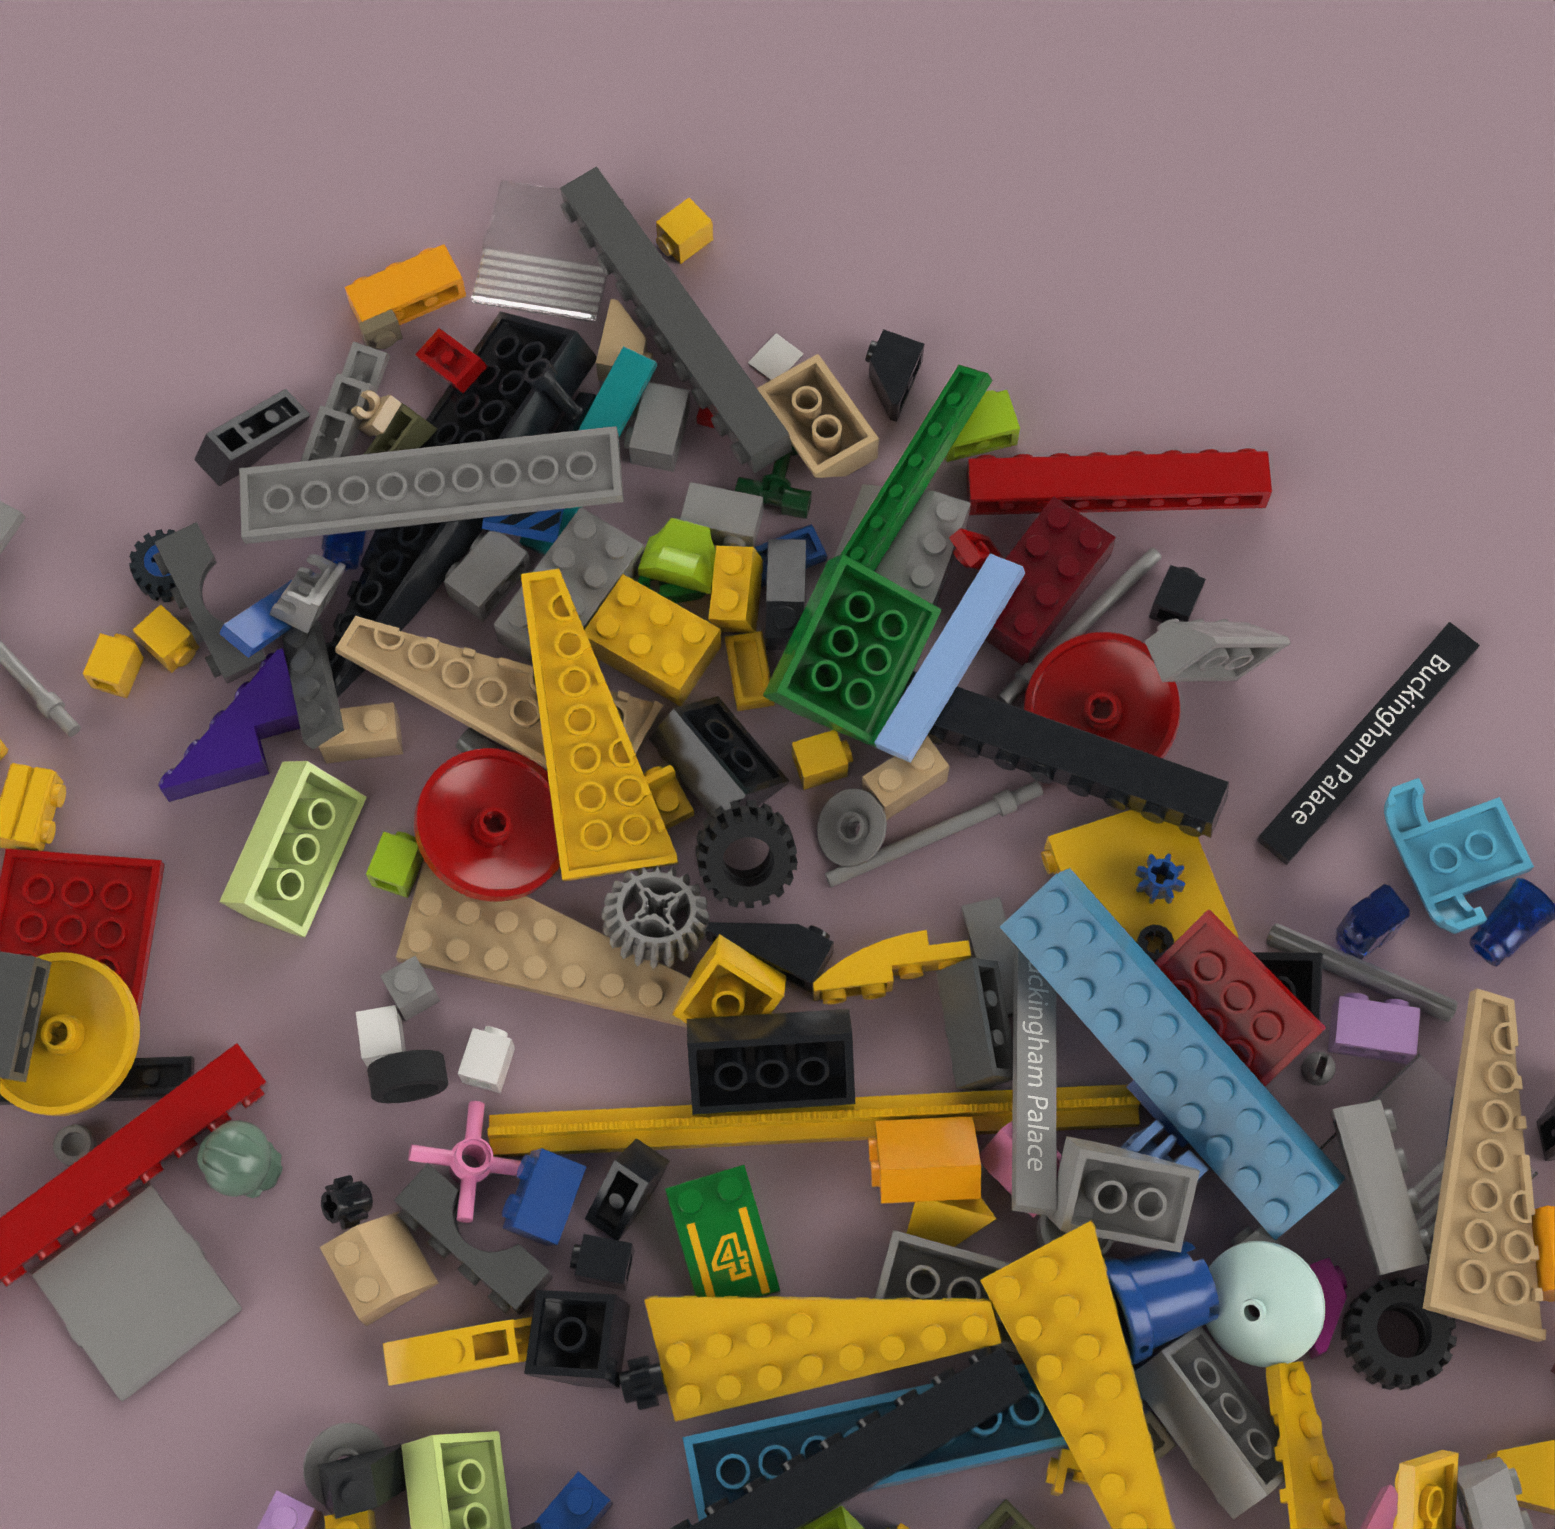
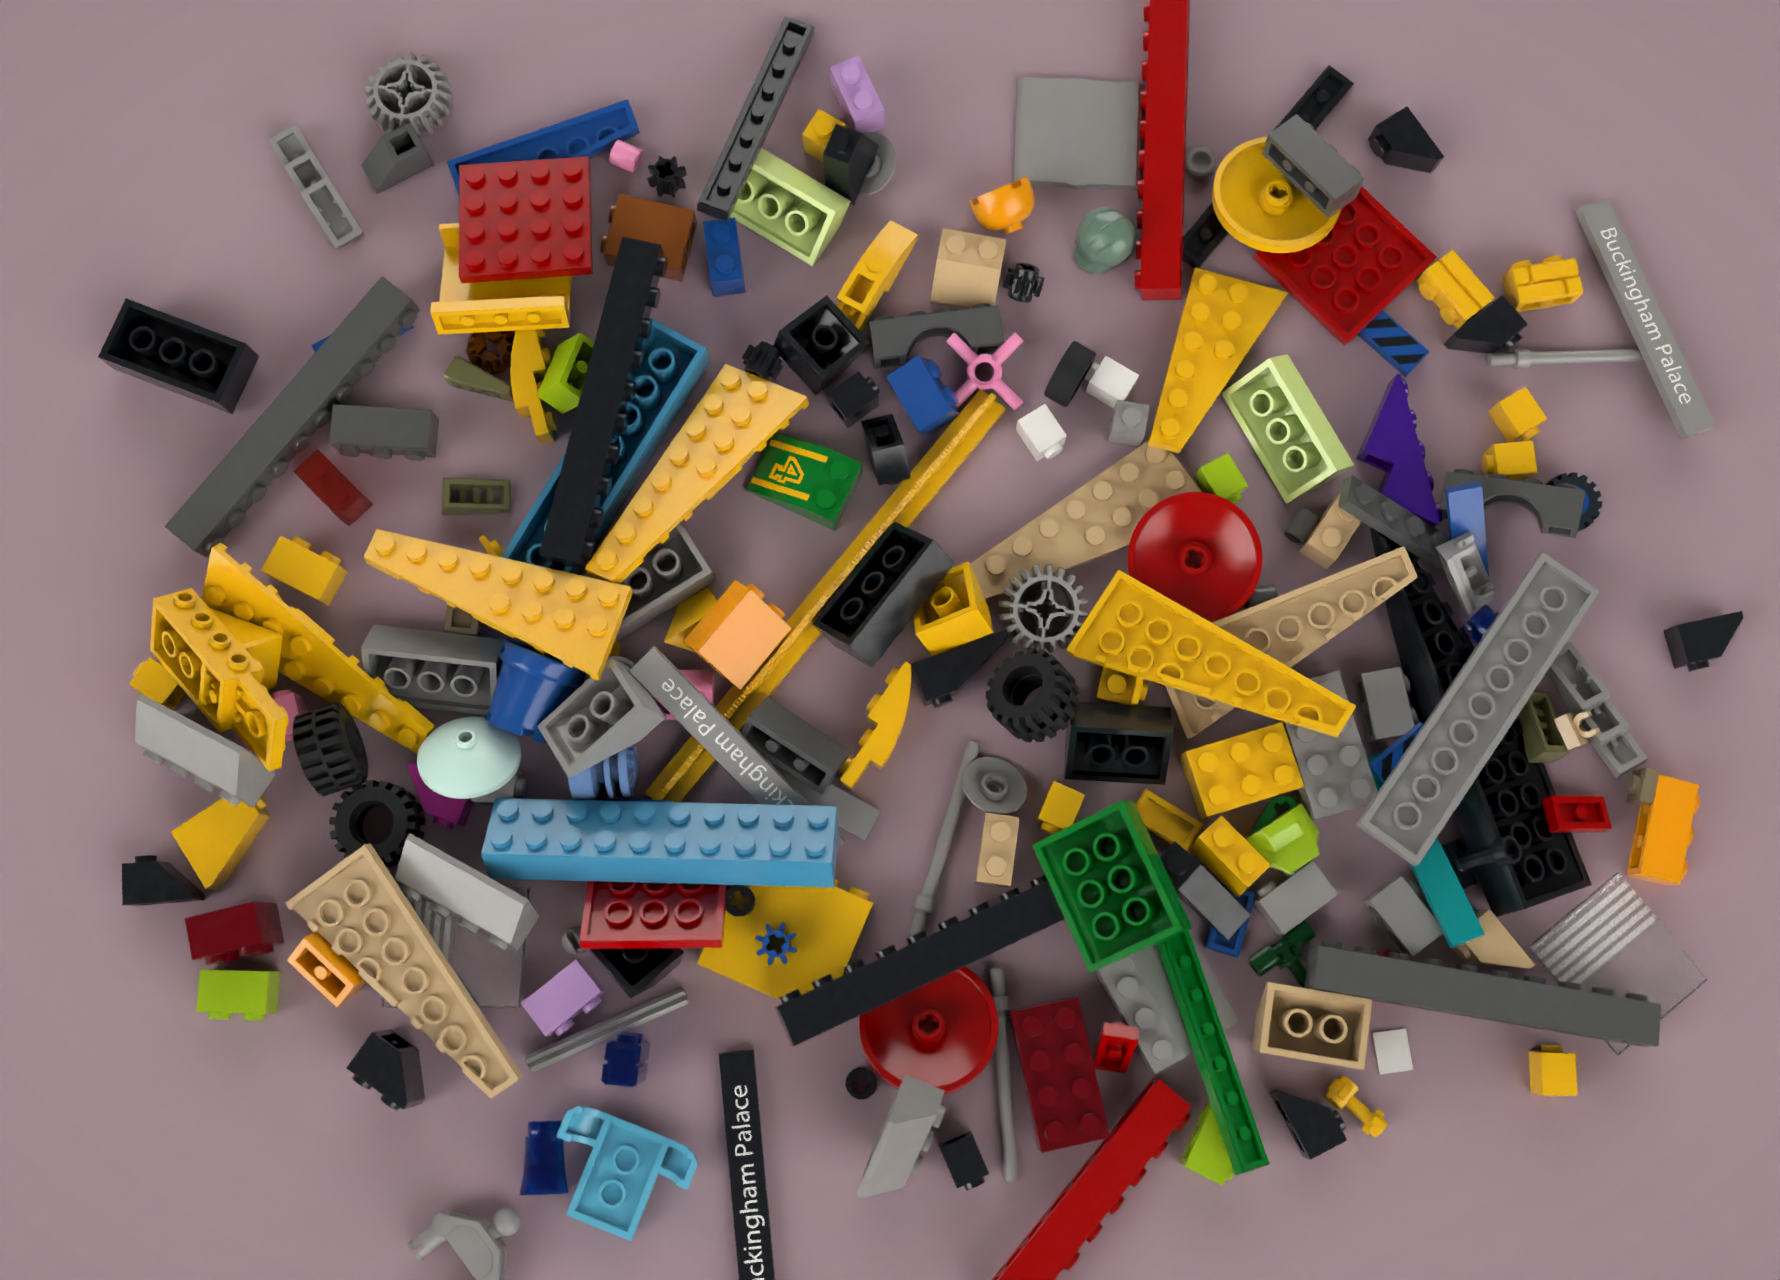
camera: 130 degrees right, 10 degrees up
(42, 745) = (1489, 330): none -> black slope
(126, 821) = (1393, 343): none -> blue tile
(205, 375) = (1701, 640): none -> black slope
(249, 436) = (1626, 633): black slope -> none
(255, 983) = (1212, 339): none -> yellow wing
(279, 1288) = (1005, 206): none -> light orange cylinder
(378, 765) = (1301, 526): none -> dark grey hinge
(847, 365) = (1341, 1094): none -> yellow bar
(949, 658) = (1051, 950): light blue tile -> none
(1197, 718) = (869, 1090): none -> black bush
(1380, 1435) = (330, 749): none -> black tyre

